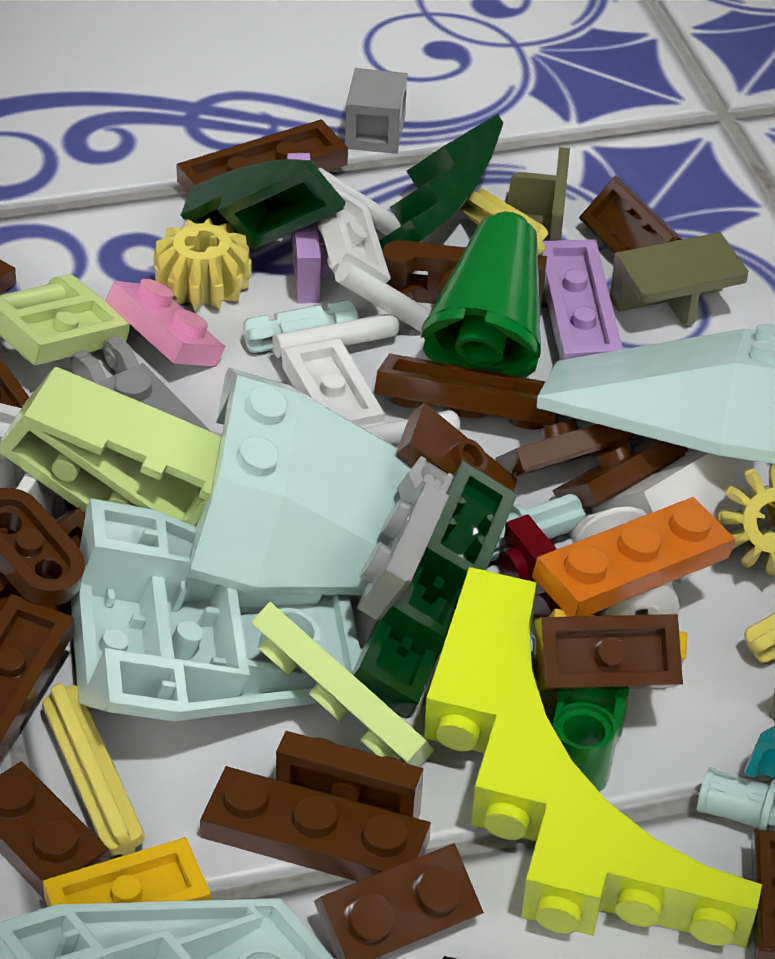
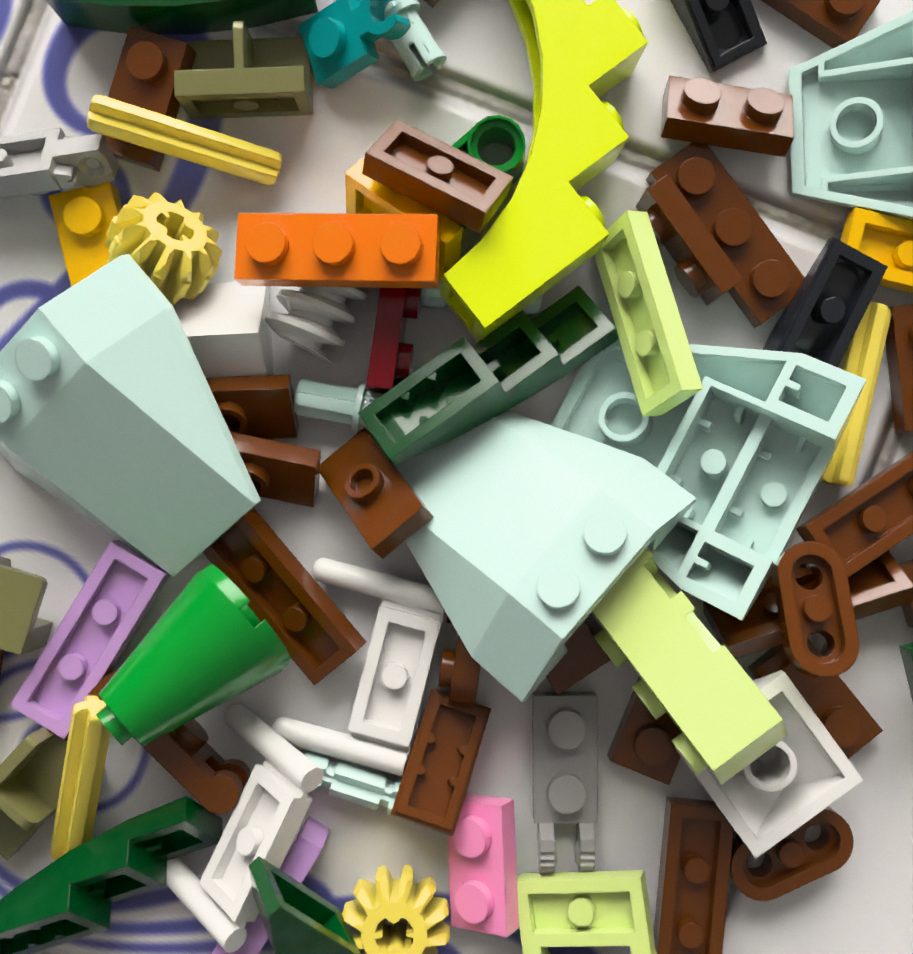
camera: 145 degrees left, 45 degrees up
(173, 789) = (828, 304): none -> black slope
(247, 338) = (440, 763): none -> reddish brown plate
(409, 531) = (496, 410): light grey hinge -> none

